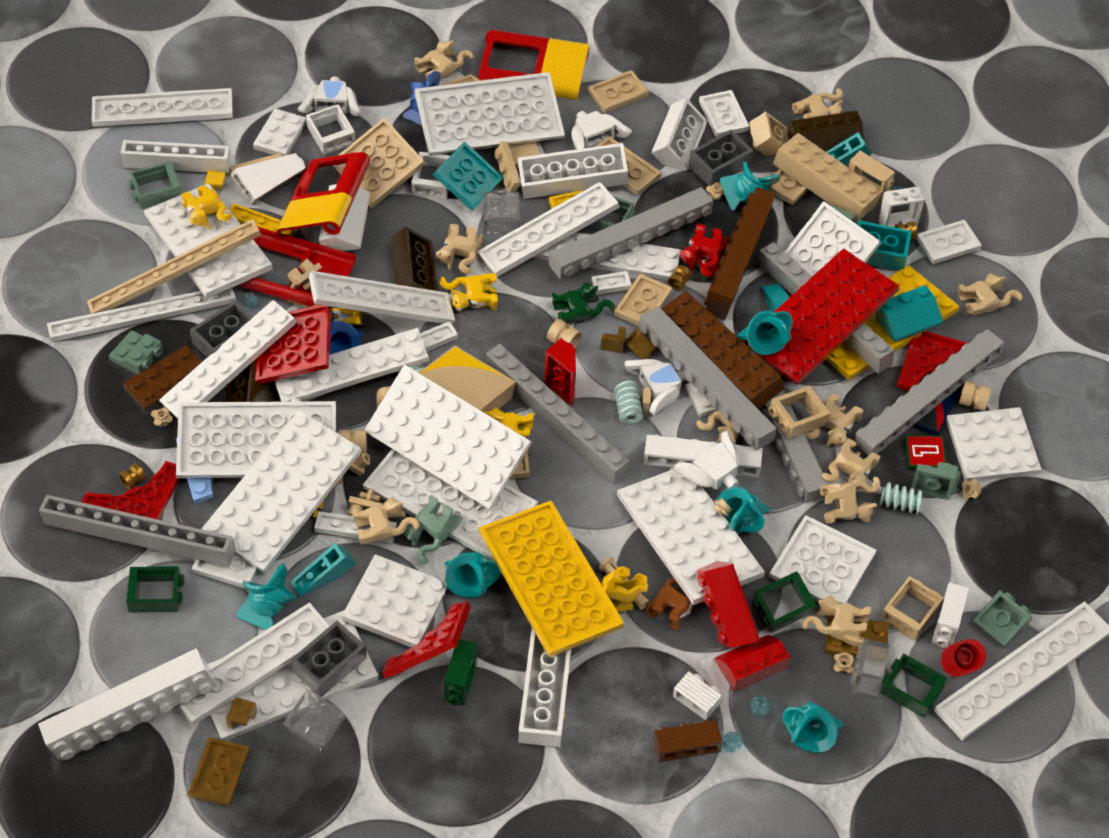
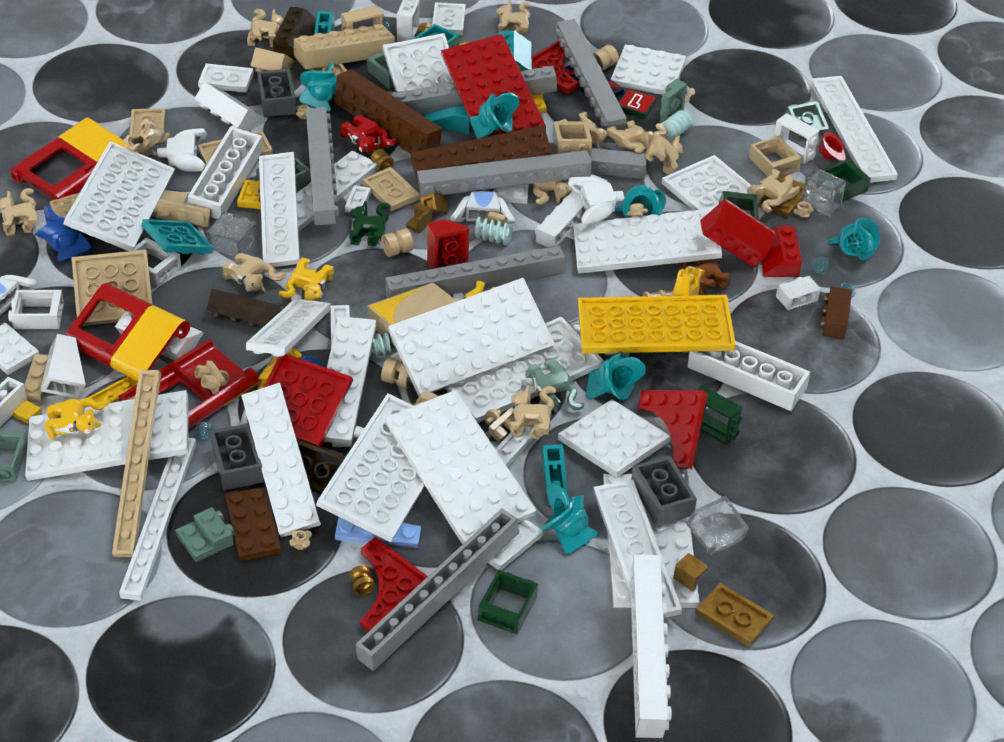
camera: 65 degrees left, 10 degrees down
(578, 96) = (146, 138): none -> tan animal

